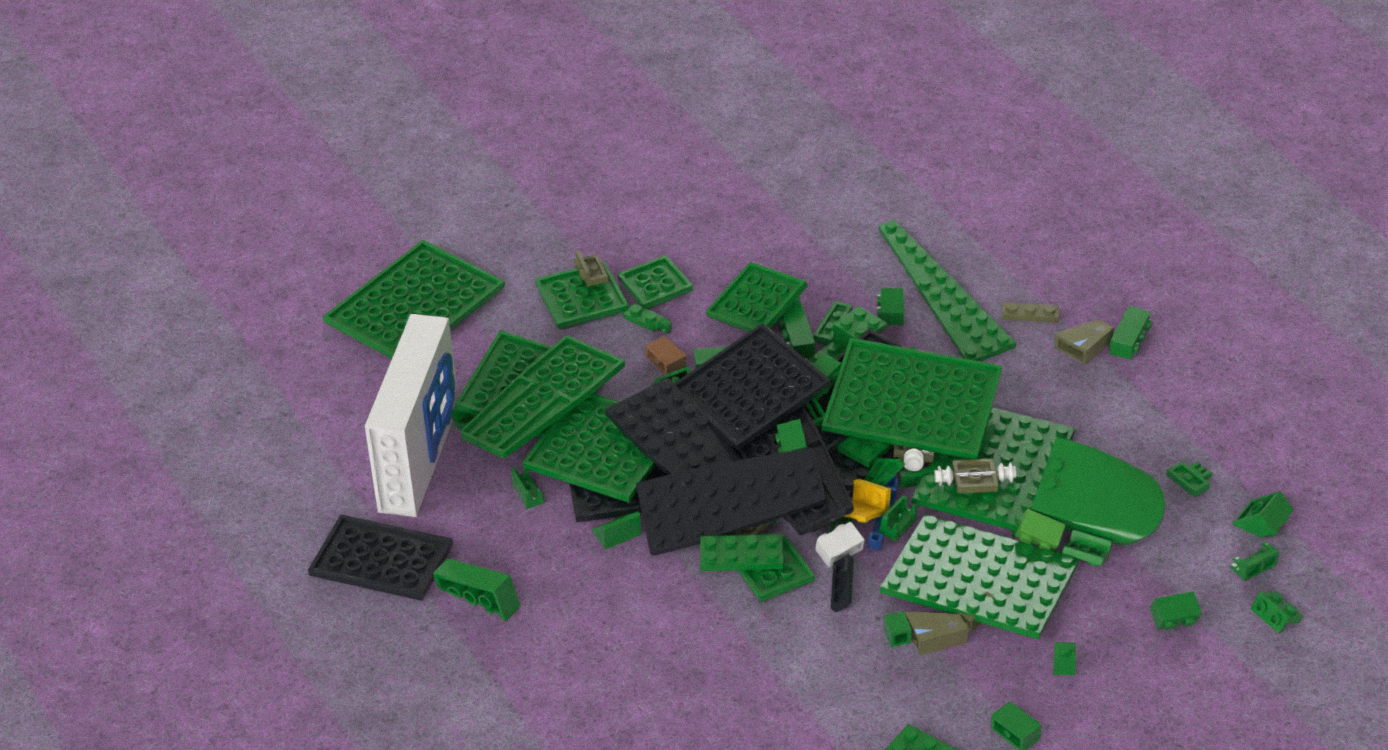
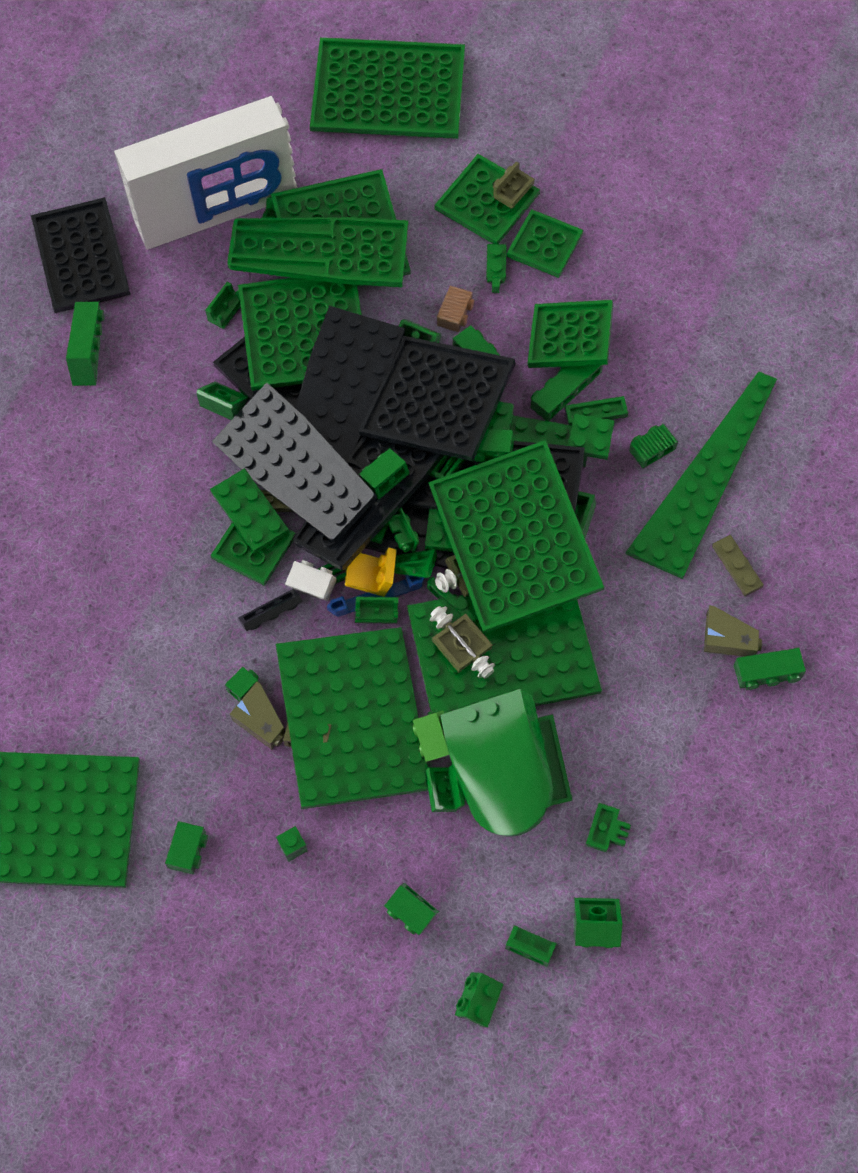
camera: 55 degrees right, 25 degrees up
(850, 465) = (407, 538): none -> green hinge

